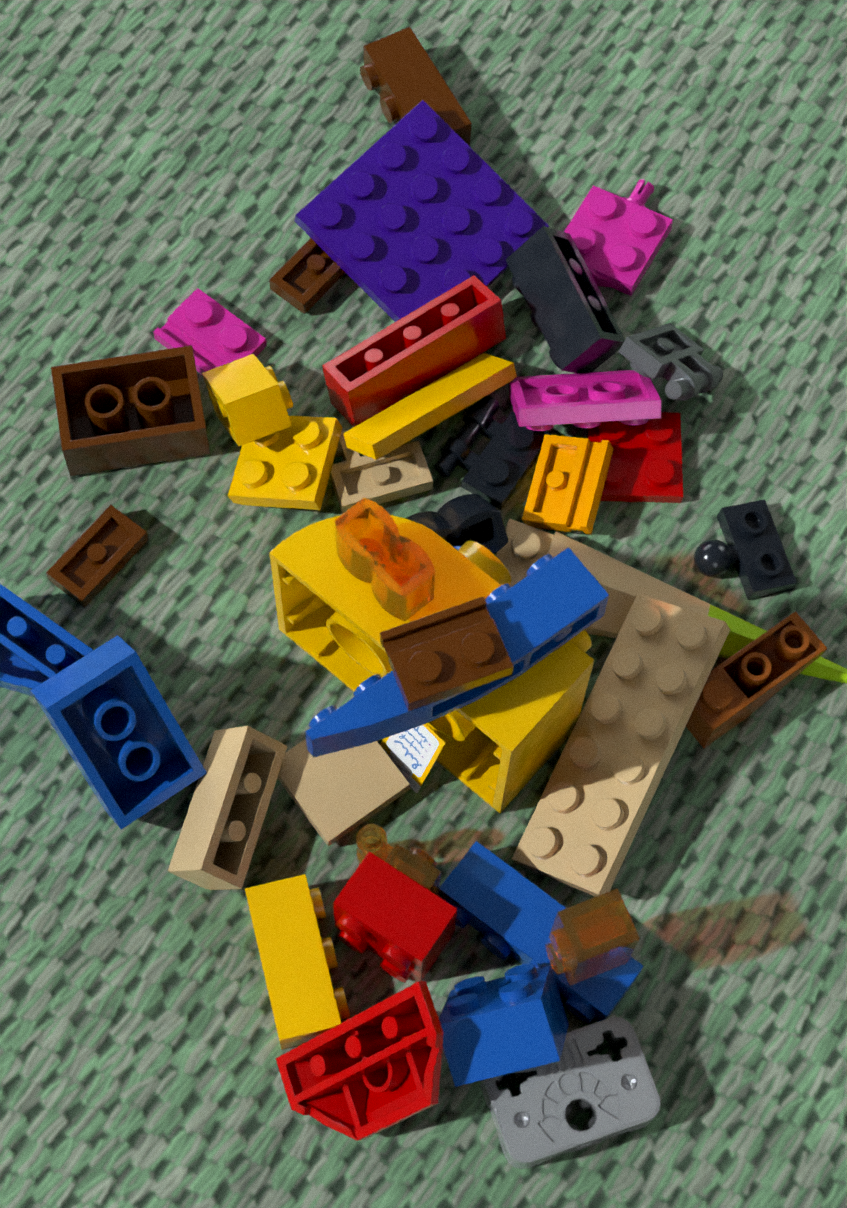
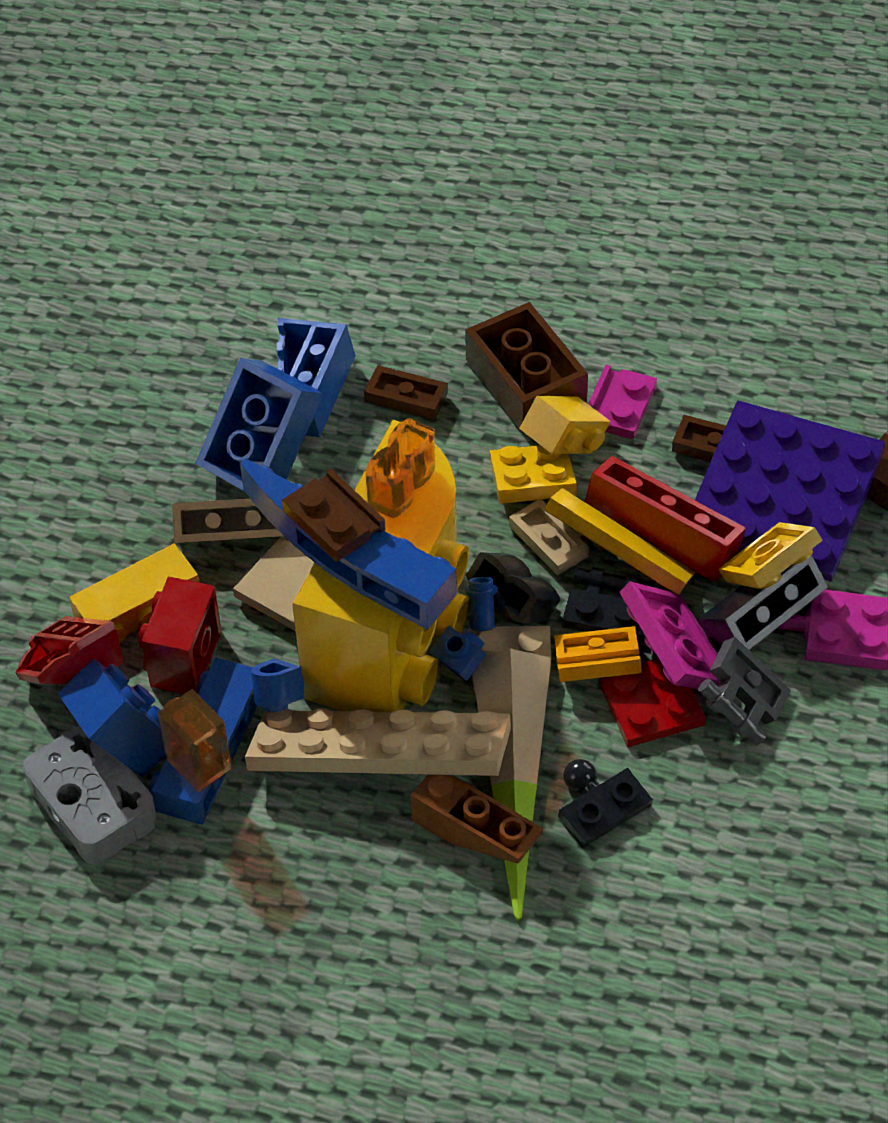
camera: 75 degrees right, 15 degrees down
(412, 863) = (221, 622): clear orange plate -> none
(507, 828) = (277, 684): none -> blue plate
(532, 263) = (770, 555): none -> yellow plate

